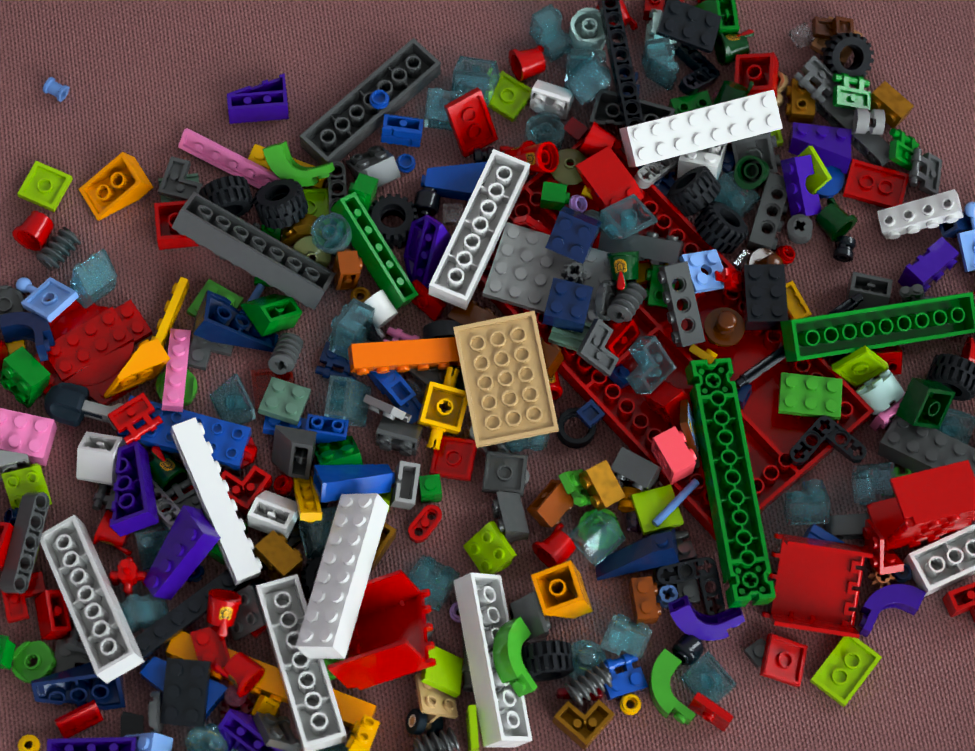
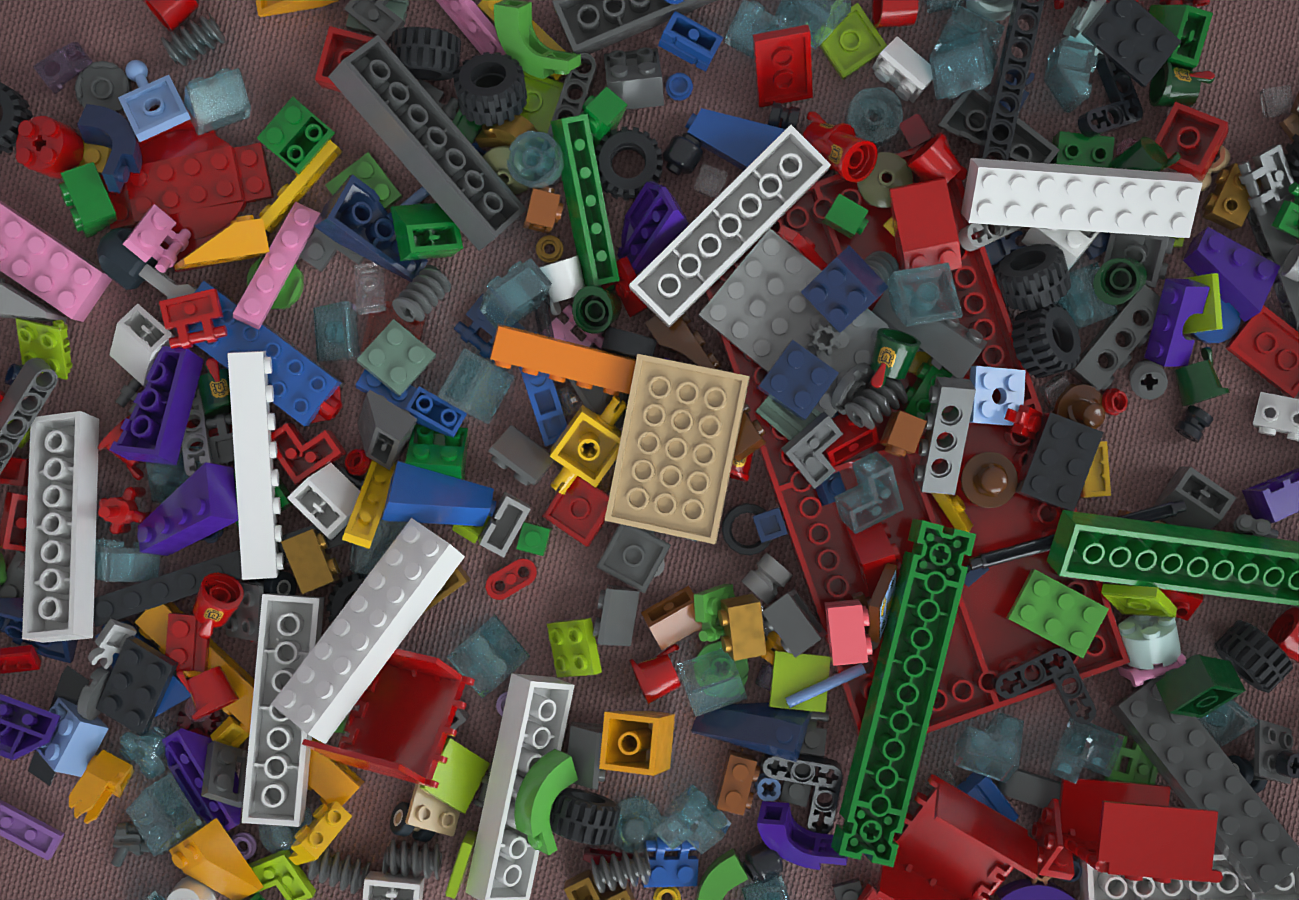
camera: 25 degrees right, 20 degrees up
(84, 381) = (151, 232): none -> bright pink plate
(155, 284) = (295, 135): none -> green slope
(156, 666) = (110, 642): none -> light grey plate
(246, 364) = (369, 288): none -> clear plate
(388, 410) = (519, 418): light grey plate -> none
(409, 317) = (596, 307): none -> dark green hat
(578, 203) = (872, 239): lavender plate -> none
(604, 449) = (767, 578): none -> light grey wheel
(652, 314) = (902, 433): none -> dark orange brick

